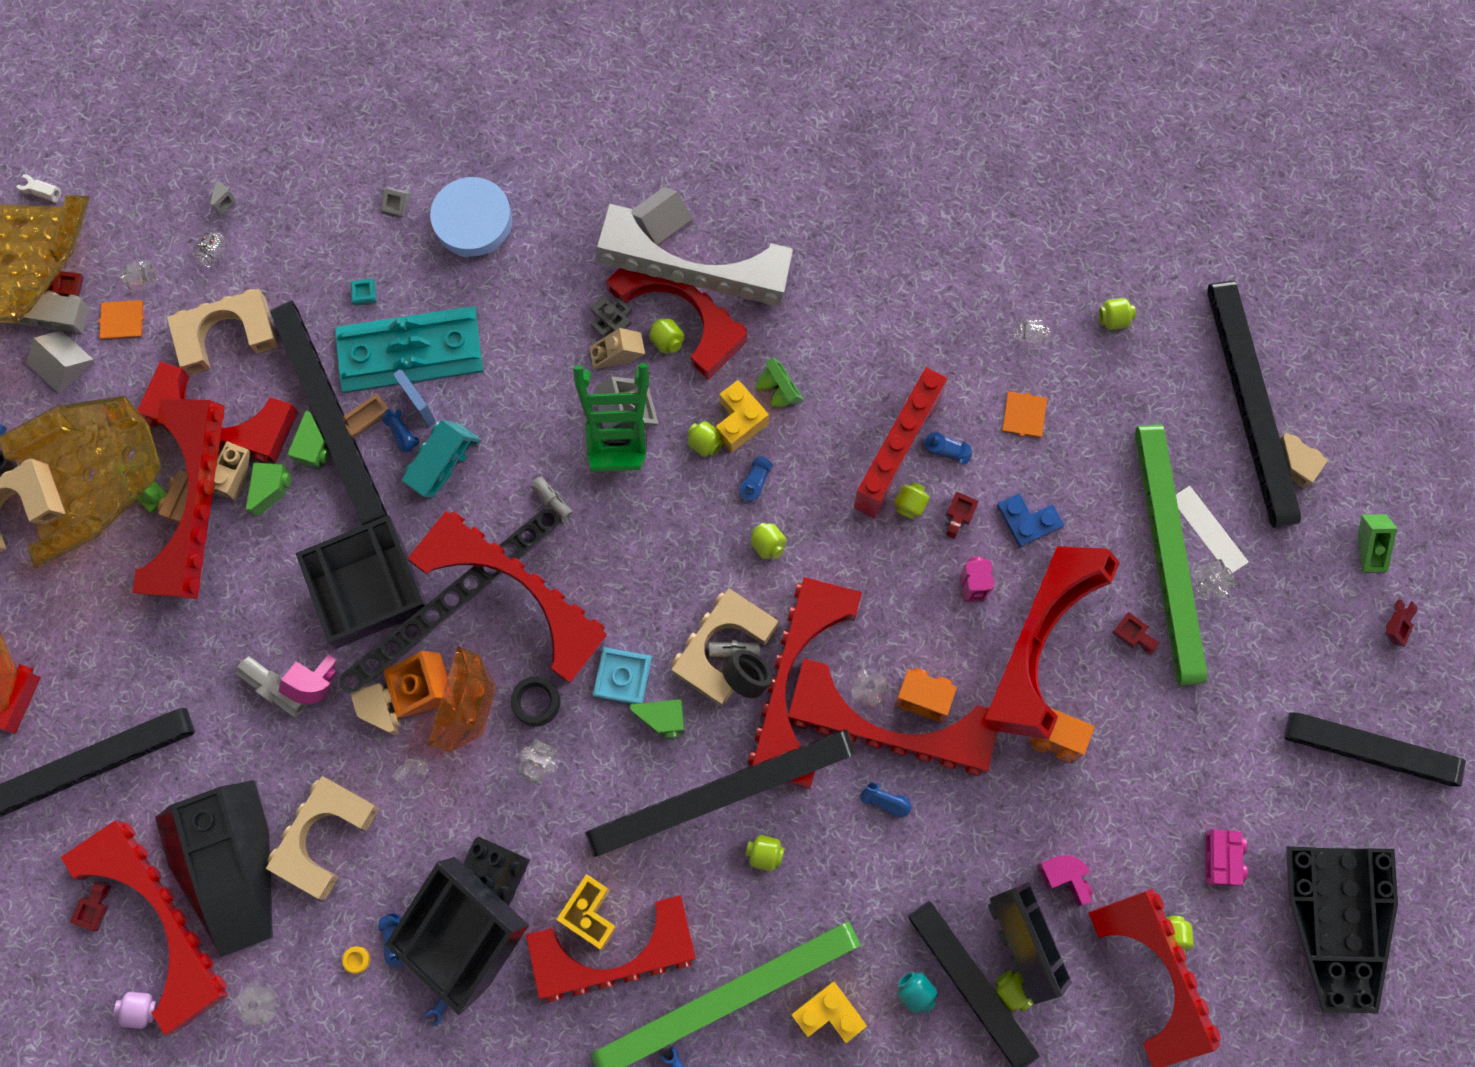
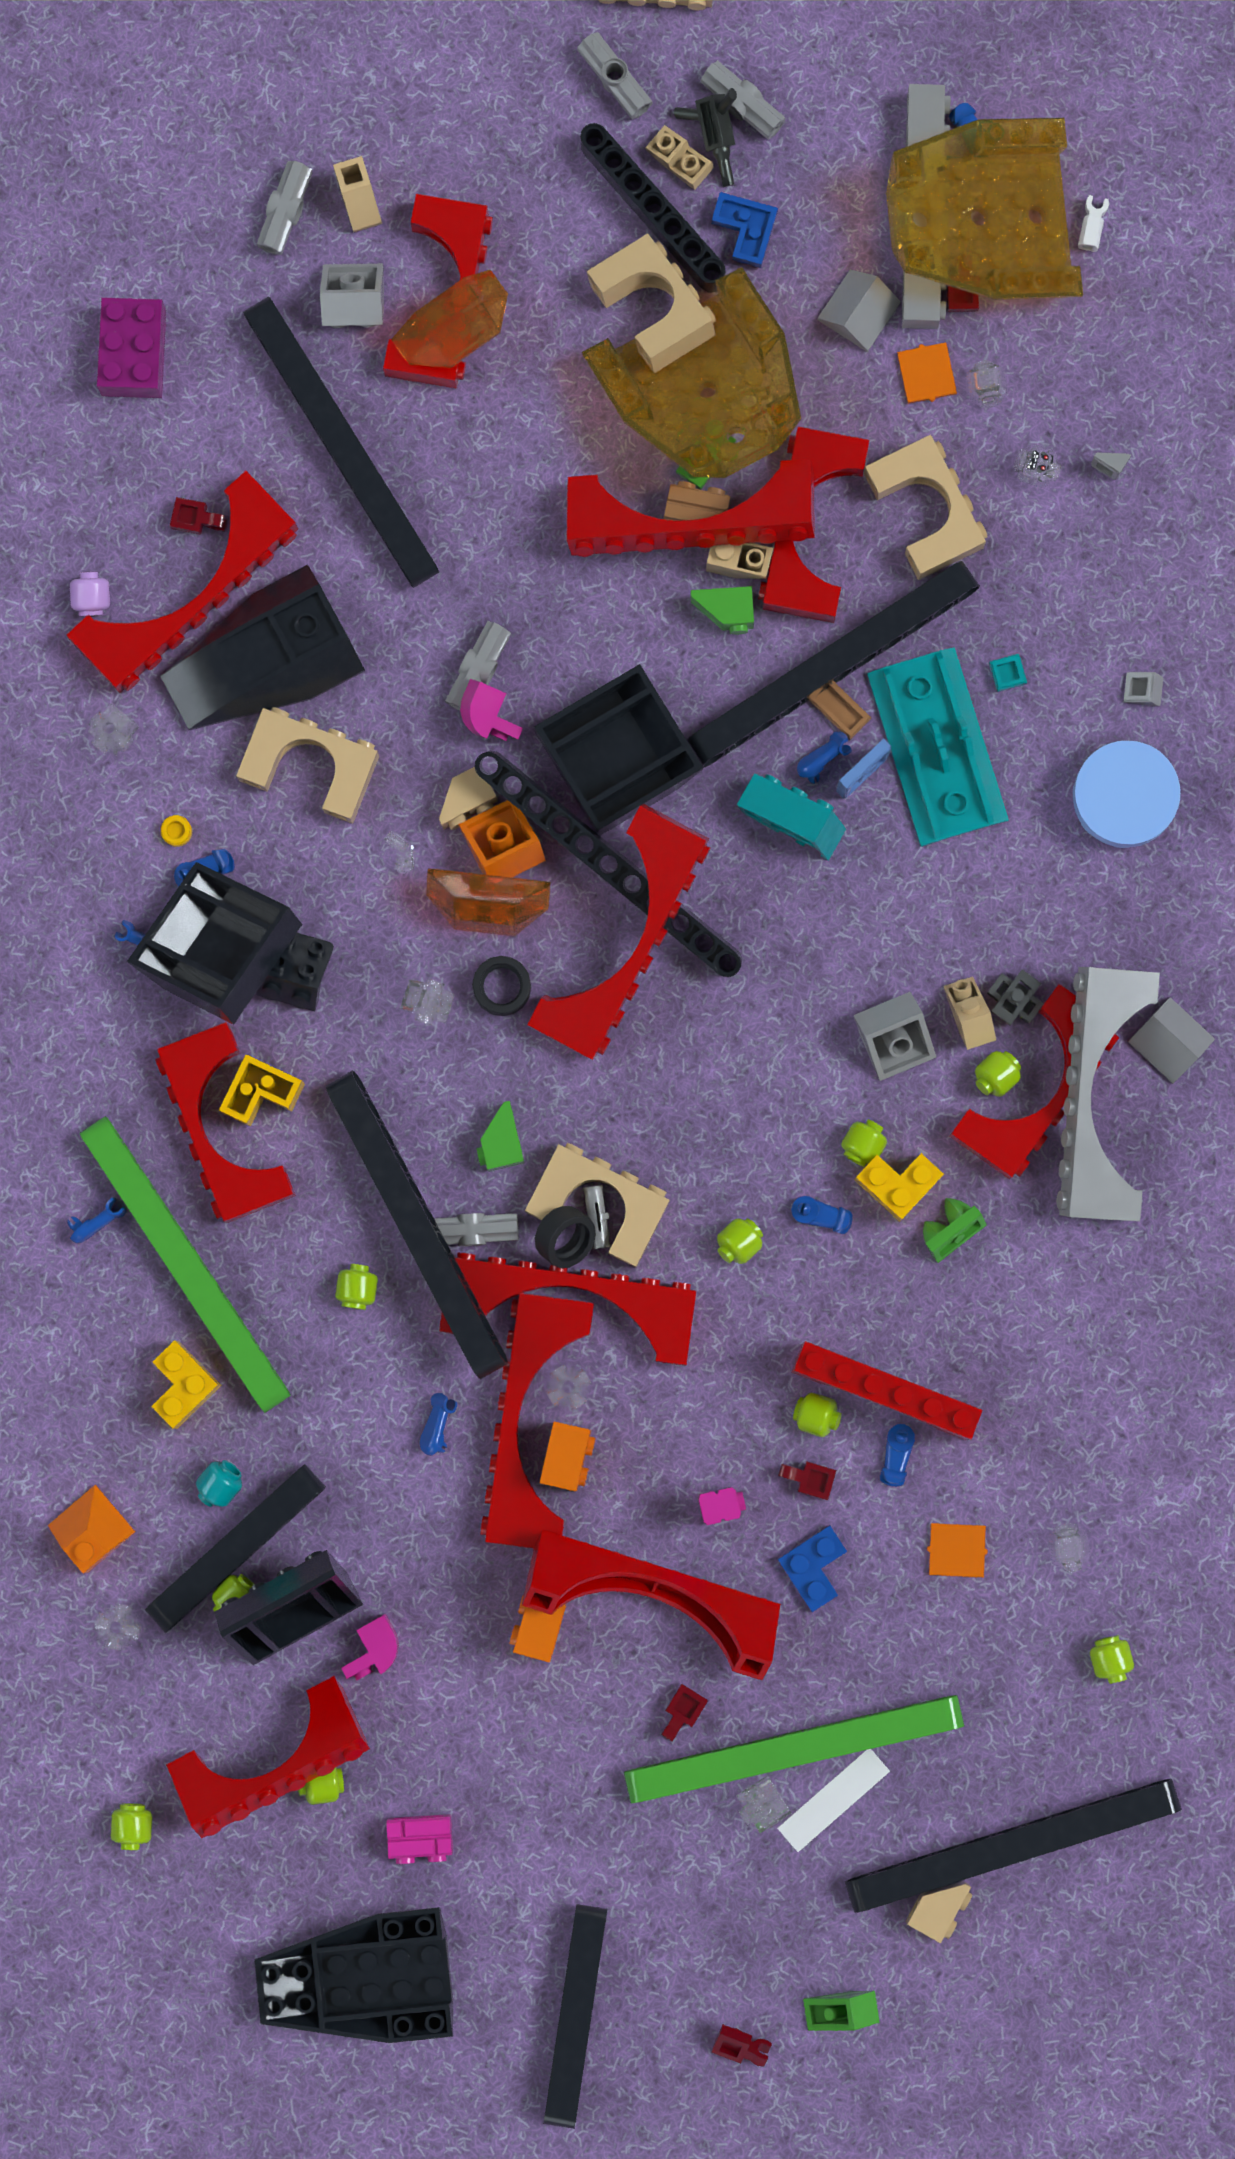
camera: 85 degrees right, 10 degrees up
(309, 444) = (789, 648): bright green slope -> none
(552, 499) = (759, 963): light grey pin -> none
(617, 455) = (819, 1032): green hand -> none
(622, 676) = (547, 1086): medium azure tile -> none
(731, 744) = (479, 1228): none -> light grey piece

